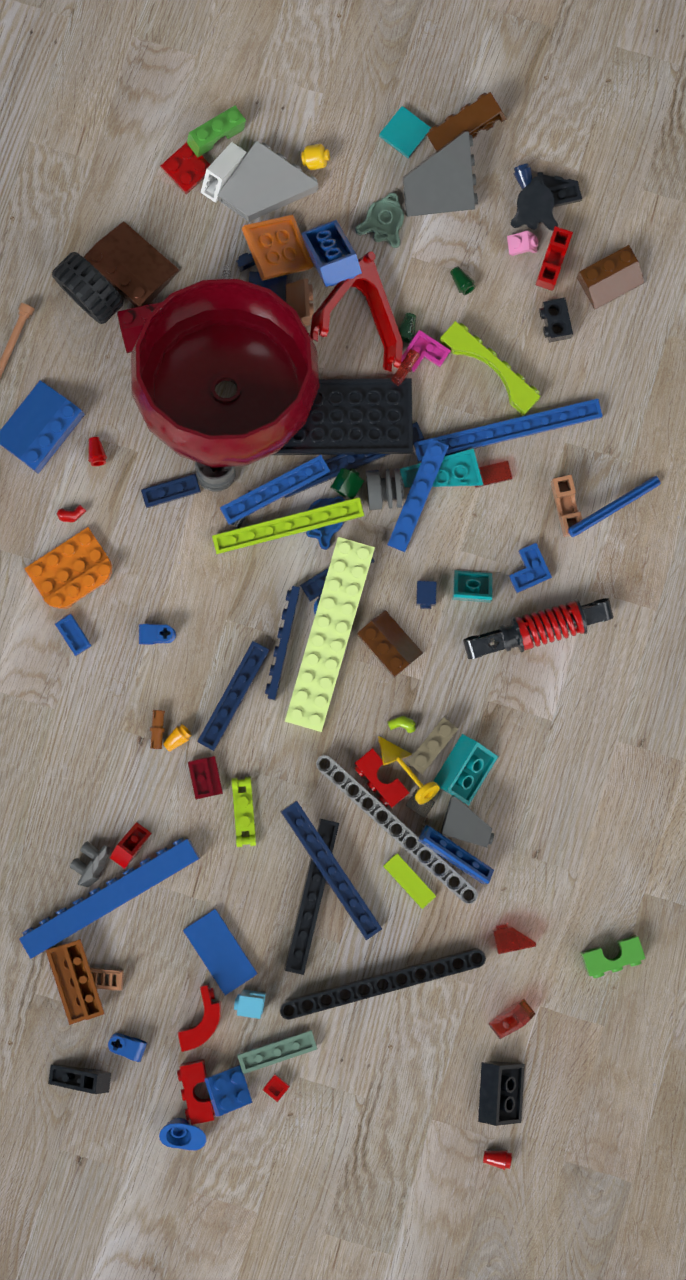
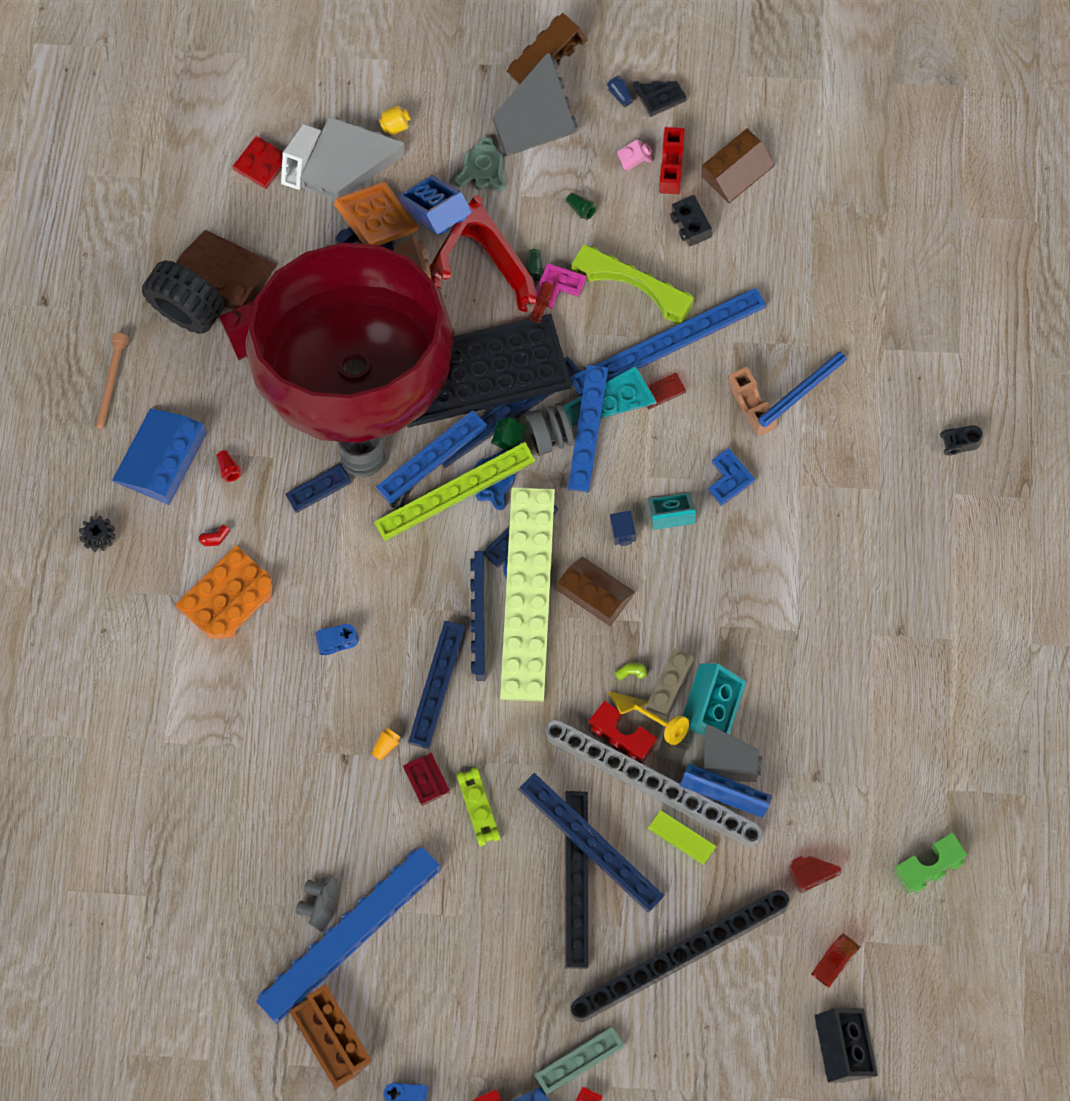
camera: 10 degrees left, 15 degrees down
(73, 634) = (244, 661): blue plate -> none
(119, 978) = (378, 1016): nougat slope -> none
(130, 845) = (358, 872): red slope -> none
(157, 729) = (360, 740): dark orange pin -> none
(199, 1034) = (488, 1059): red arch -> none
(220, 952) = (488, 966): blue tile -> none
(225, 124) = (294, 108): bright green arch -> none
(250, 1003) = (535, 1006): medium azure arch -> none
(405, 132) = (483, 76): teal tile -> none
(534, 206) = (638, 114): black tile -> none
(540, 626) = (756, 531): piece -> none

